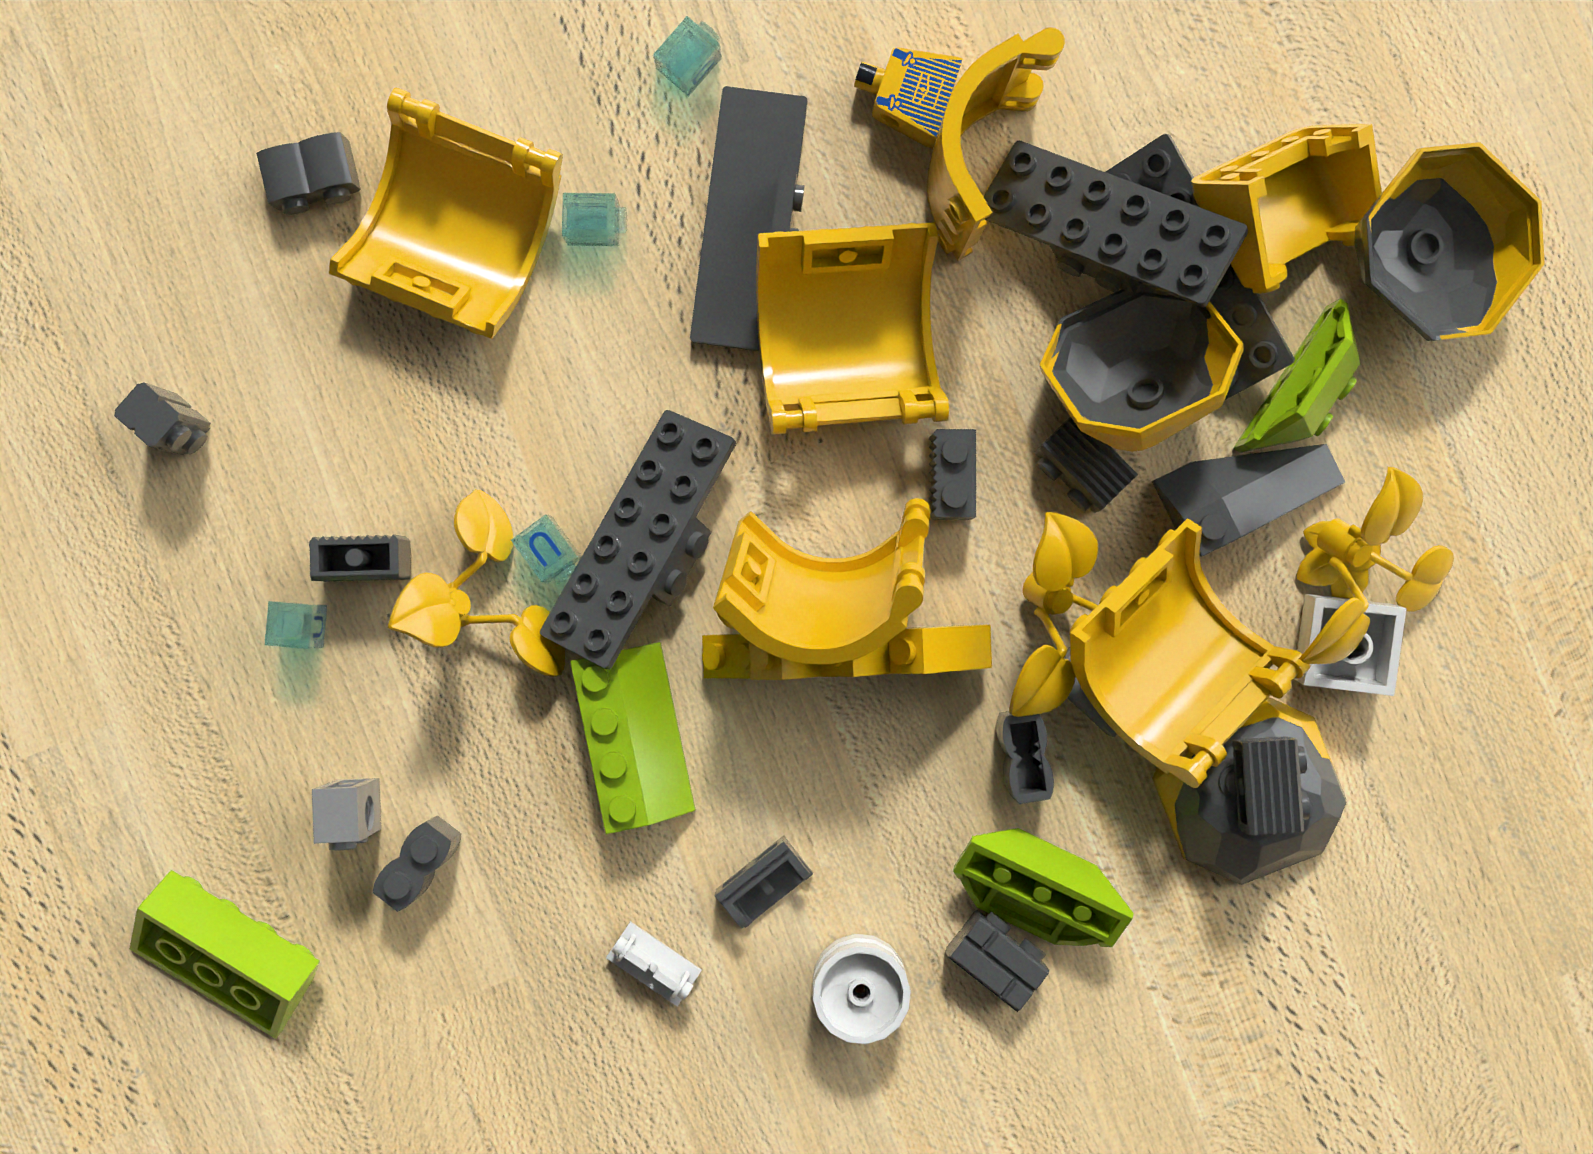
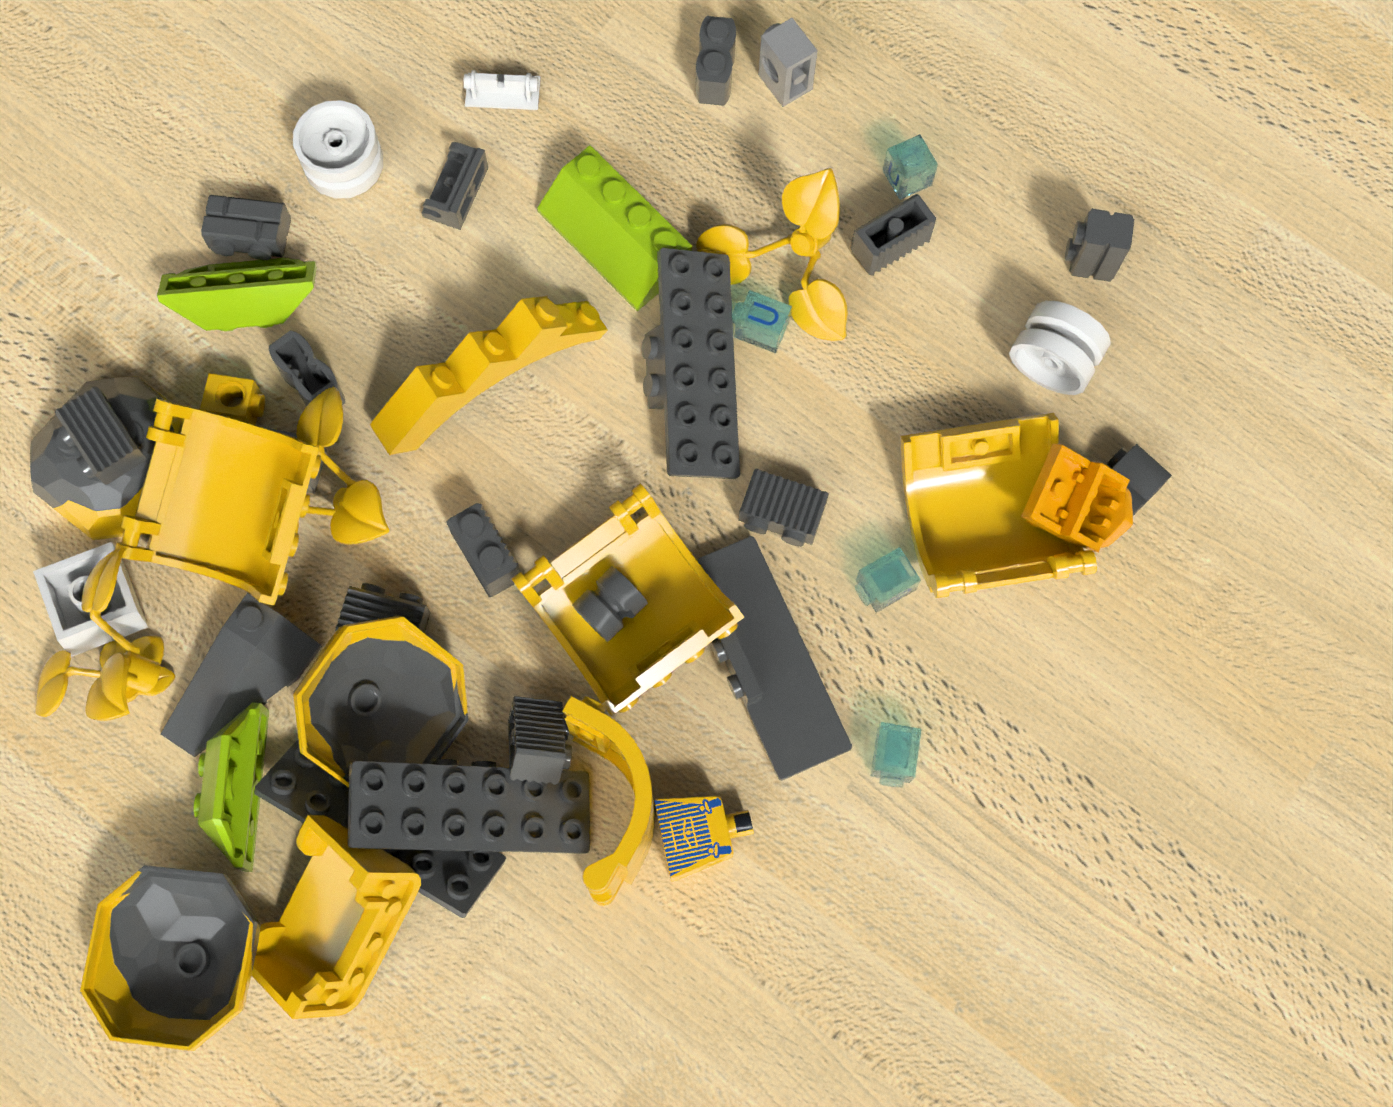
camera: 150 degrees right, 15 degrees down
(276, 337) = (1060, 347): none -> white wheel
(367, 167) = (1079, 500): none -> light orange piece
(645, 348) = (782, 508): none -> dark grey brick
(821, 606) = (532, 378): yellow hinge -> none
(874, 343) = (610, 603): none -> dark grey wheel
(1010, 254) = (537, 740): none -> dark grey brick
(1127, 780) = (222, 389): none -> yellow brick

